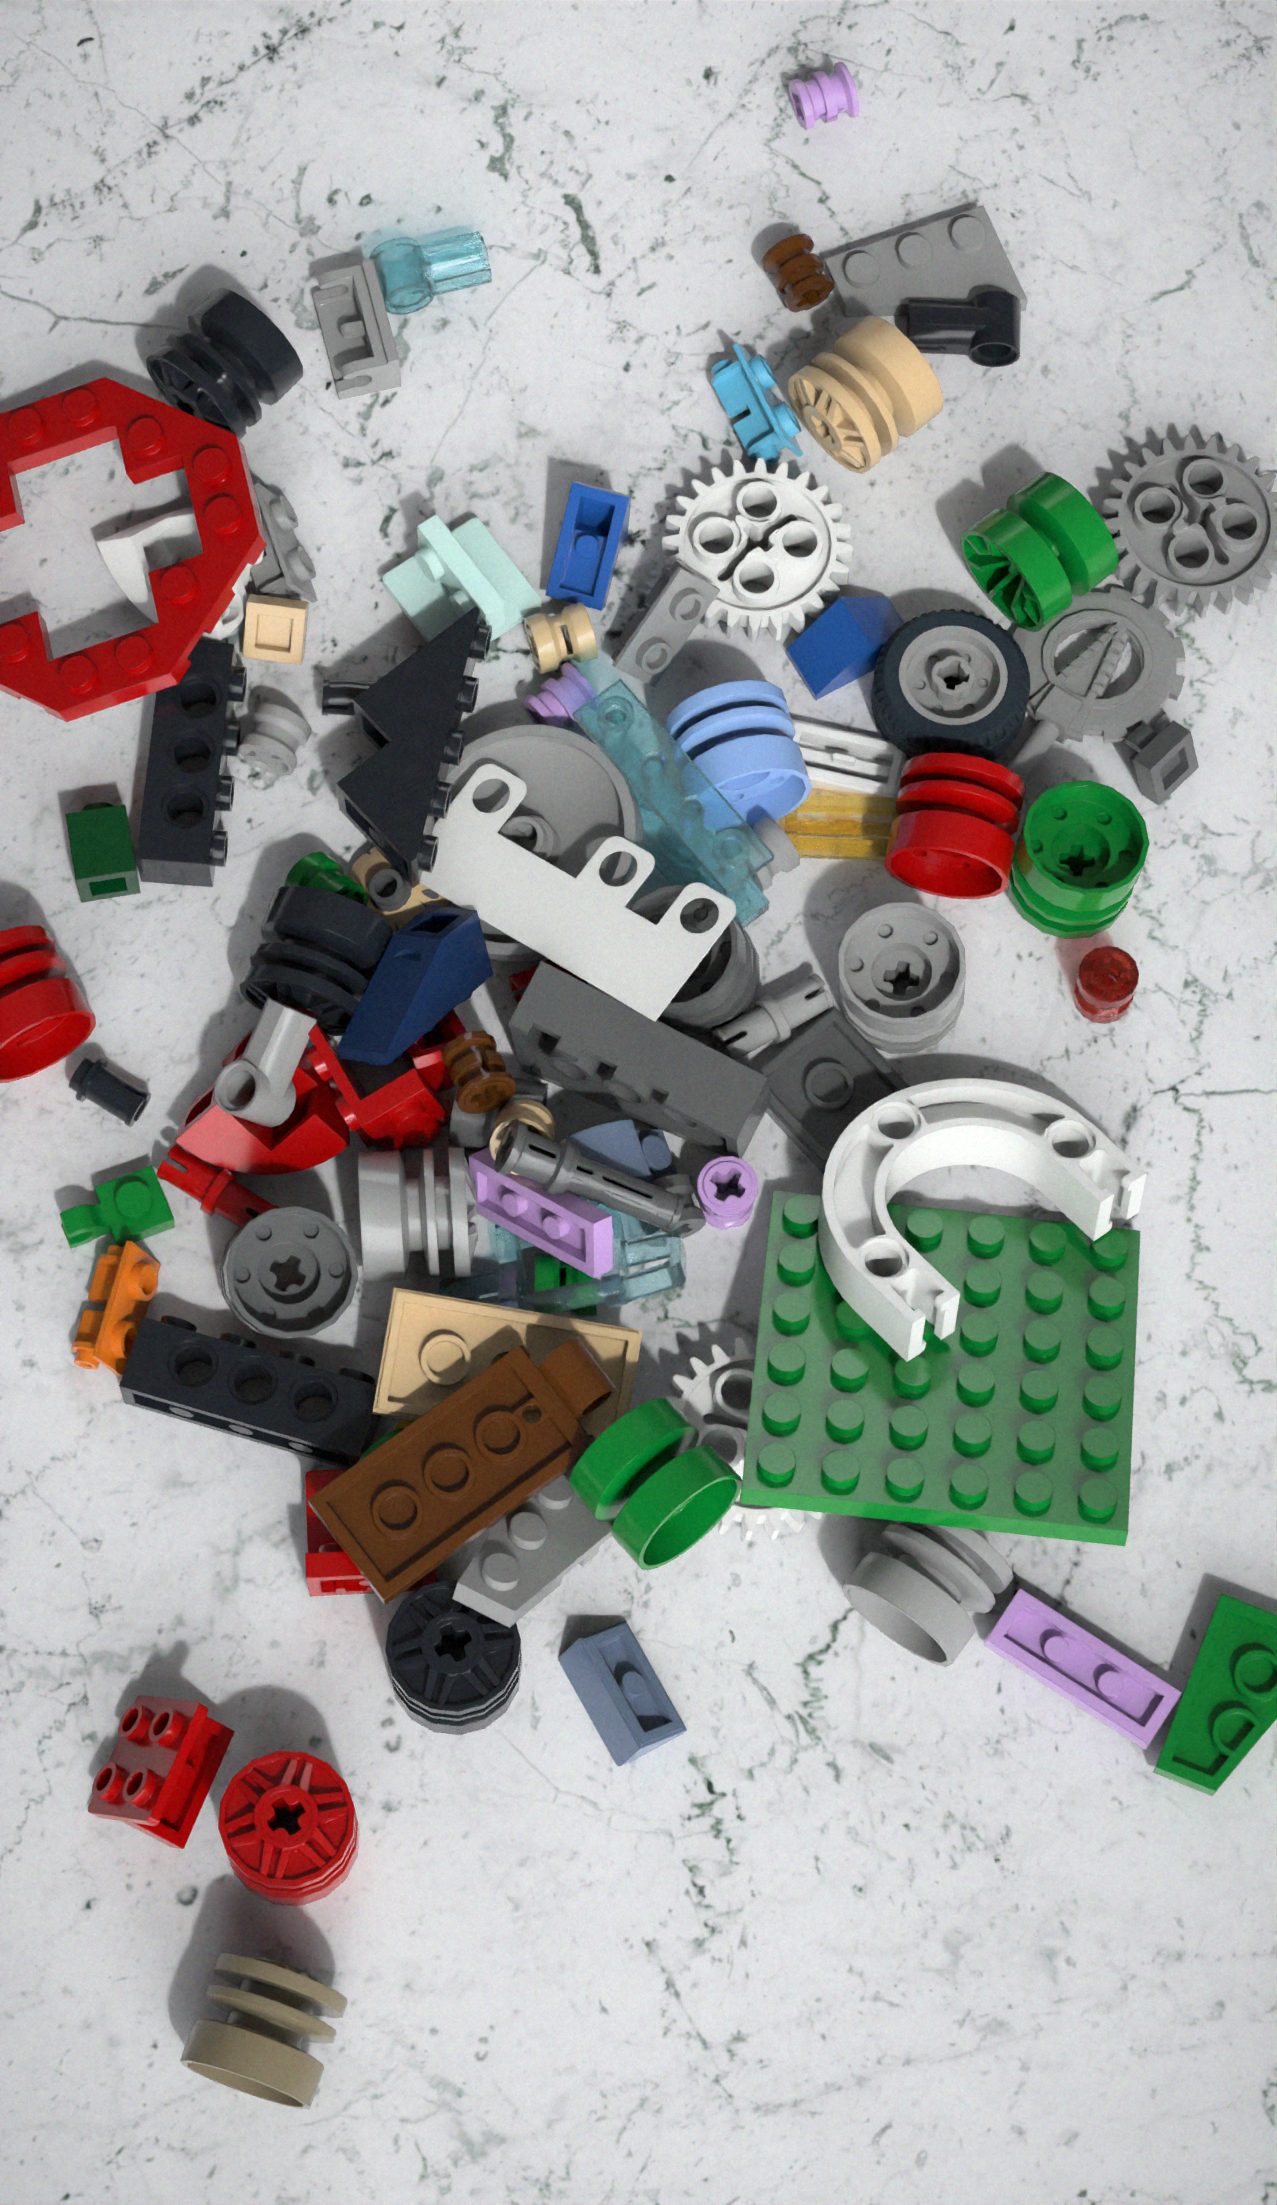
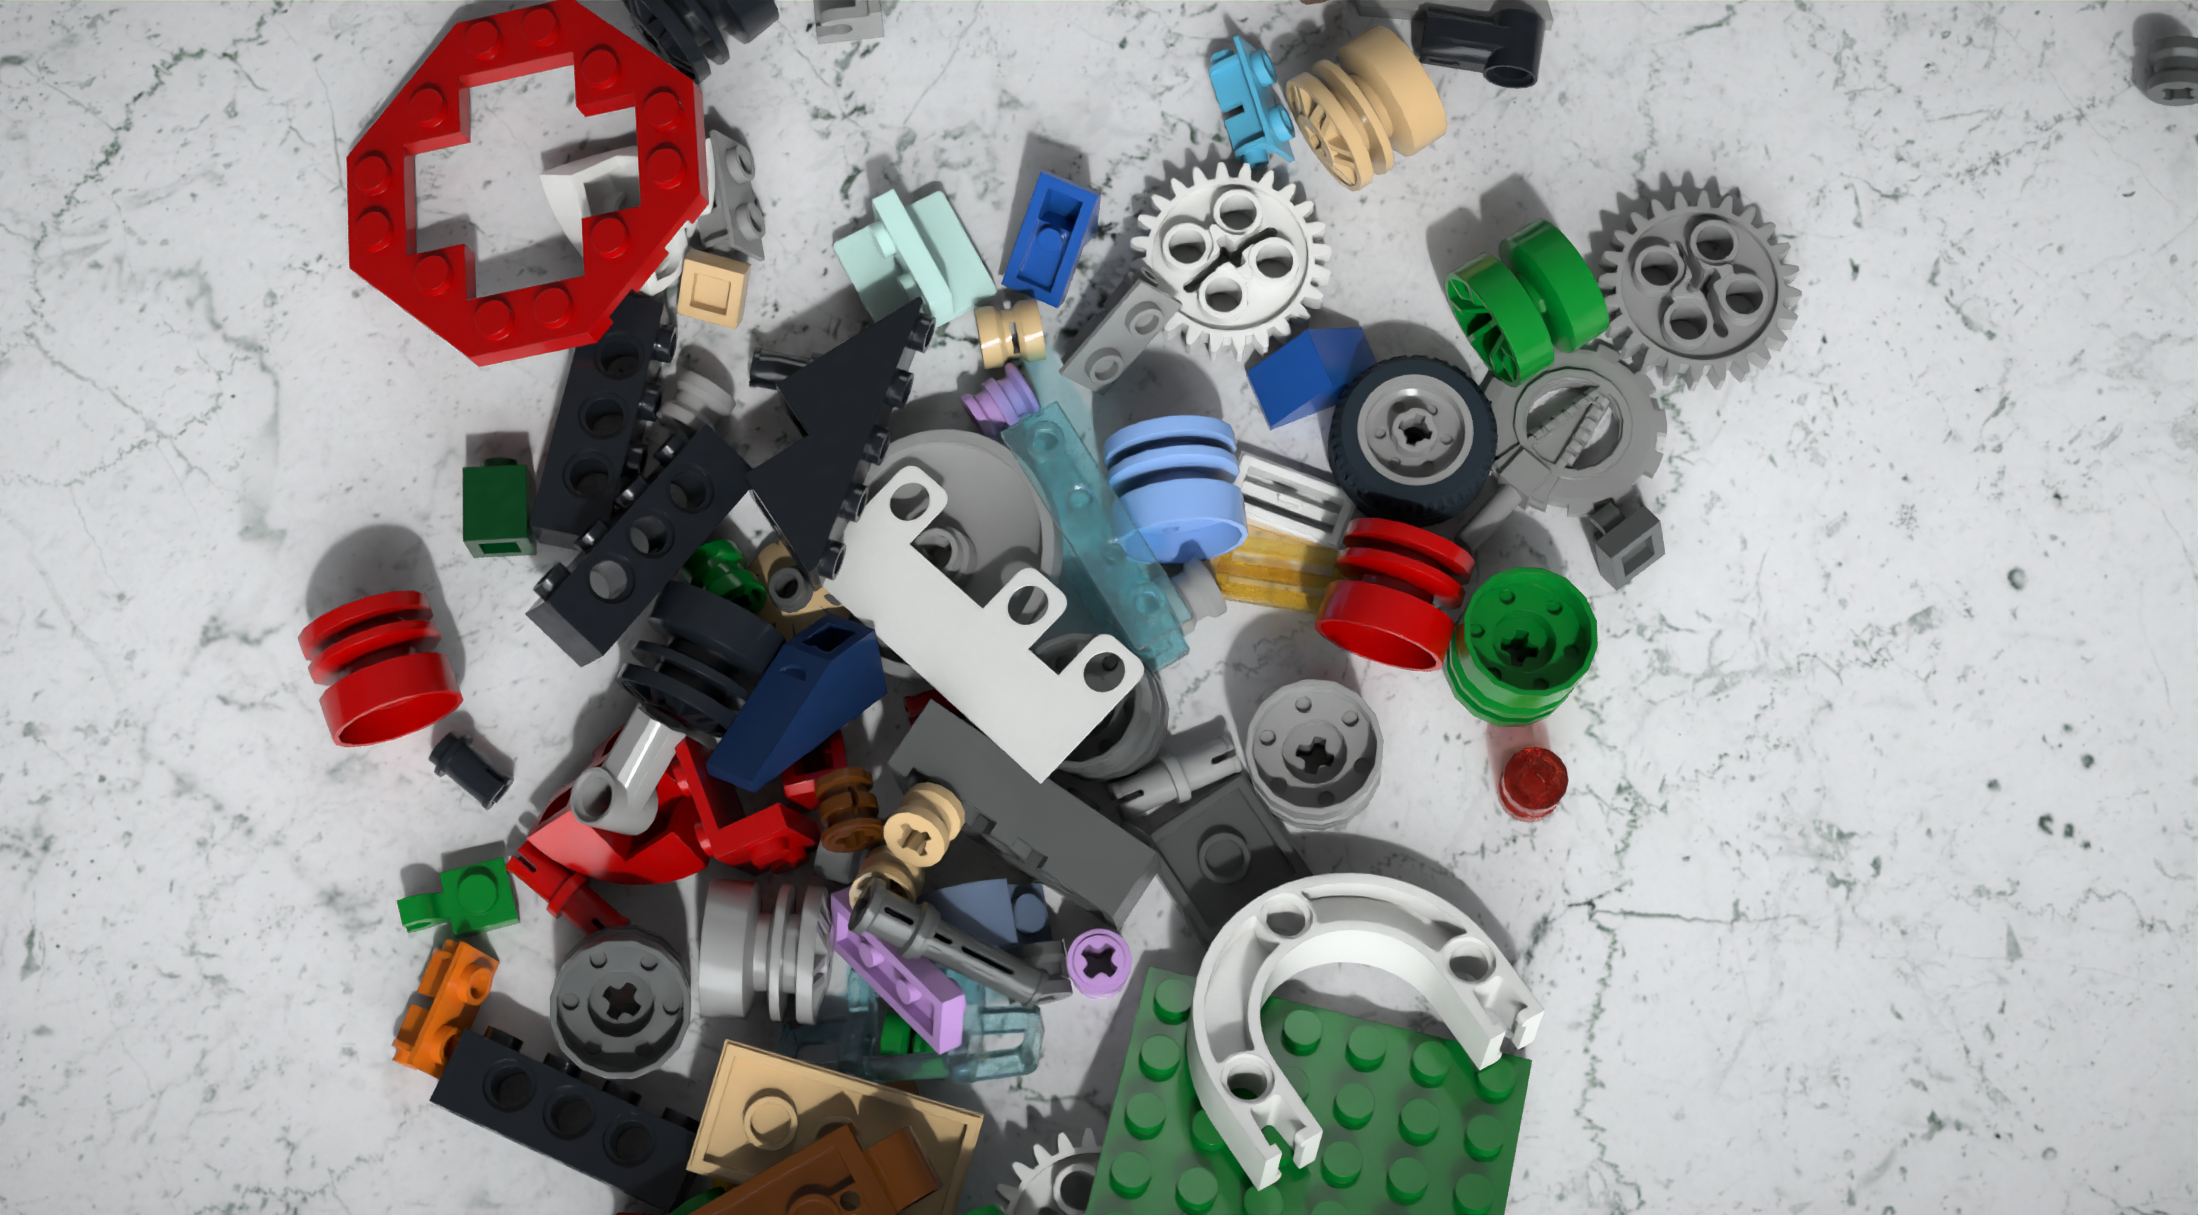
camera: 10 degrees right, 5 degrees up
(190, 921) = (567, 604): none -> black brick
(551, 1057) = (924, 824): none -> tan wheel

